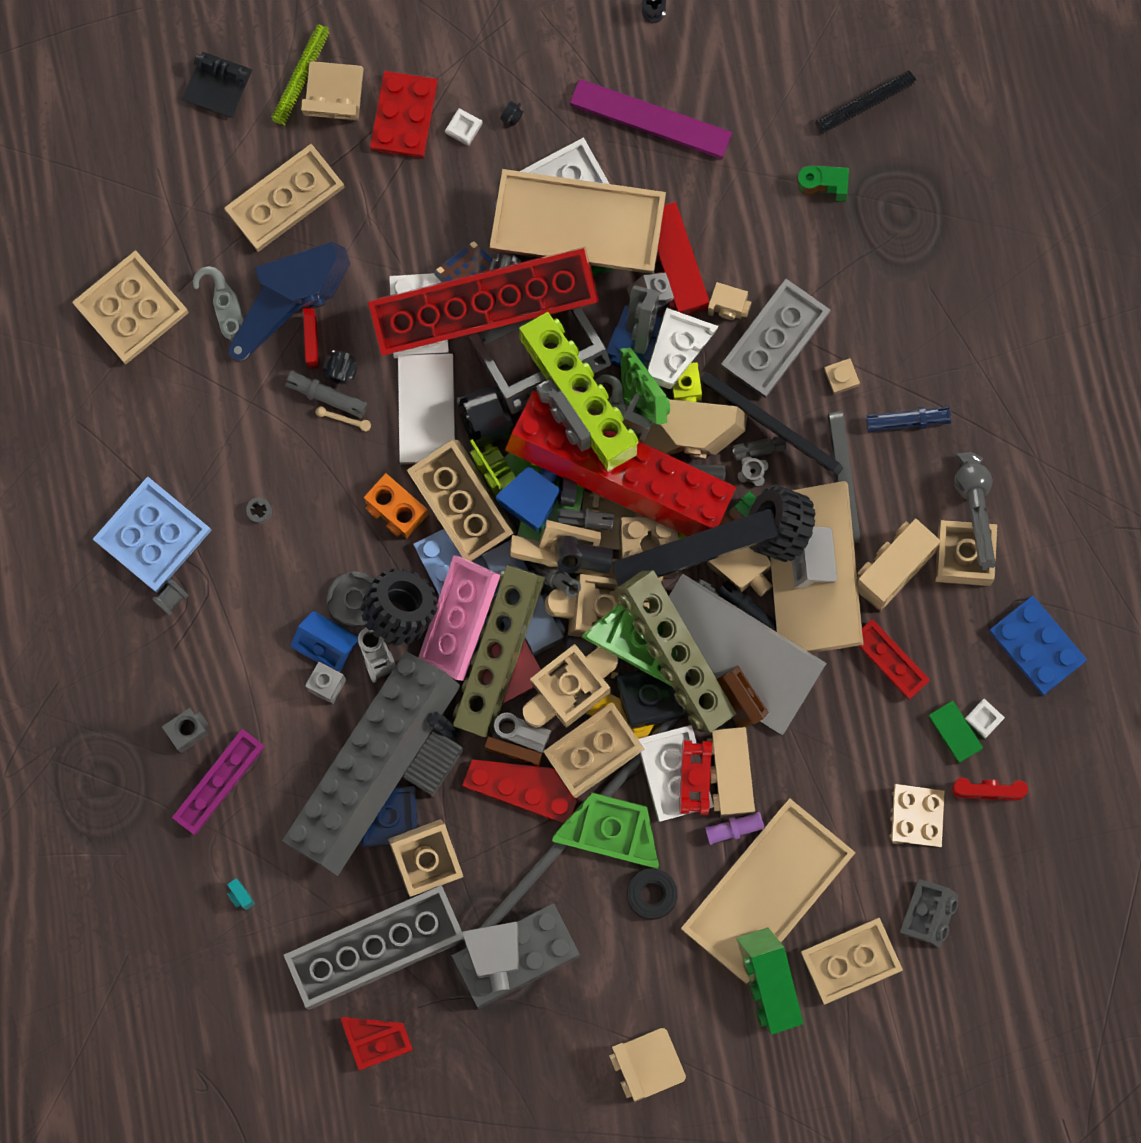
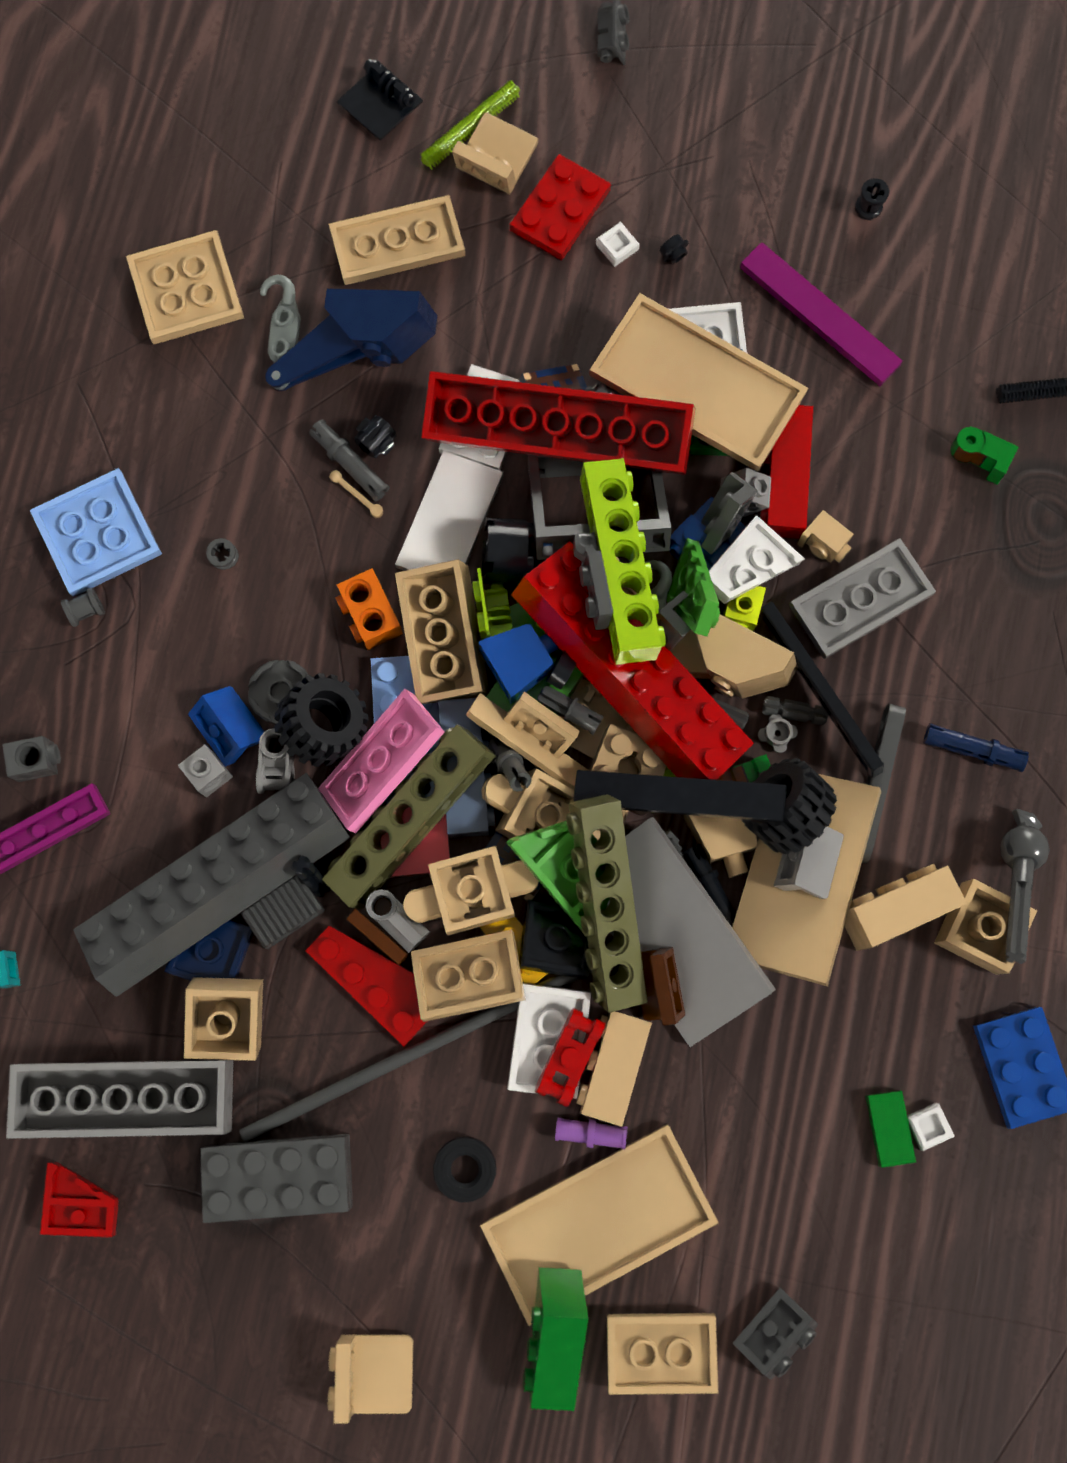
camera: 15 degrees right, 0 degrees up
(311, 338) = (358, 394): red tile -> none
(494, 953) = (245, 1172): light grey torso -> none
(575, 556) = (538, 745): black piece -> none
(610, 829) = (448, 1074): bright green wing -> none
(841, 376) = (918, 670): tan plate -> none
(892, 660) = (851, 1016): red plate -> none
(917, 815) = (807, 1210): hinge -> none
(989, 790) = (905, 1216): red plate -> none

